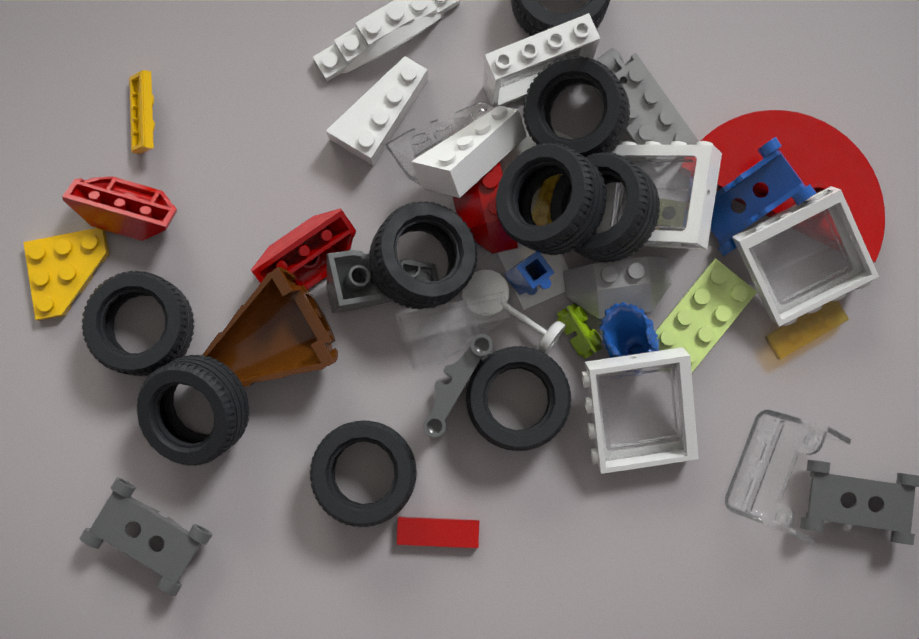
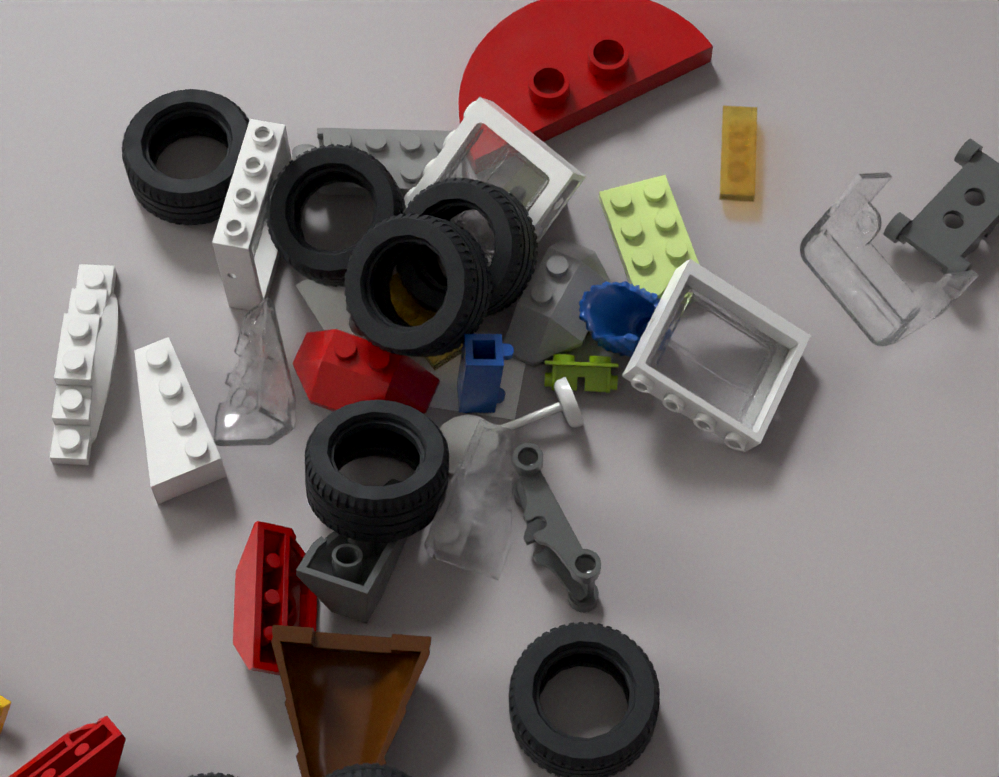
camera: 55 degrees left, 20 degrees down
(438, 532) = (710, 671): red tile -> none
(470, 153) = (298, 352): white wedge -> none
(557, 393) = (627, 430): black tyre -> none
(782, 185) = (571, 71): blue piece -> none
(806, 256) = (661, 100): piece -> none

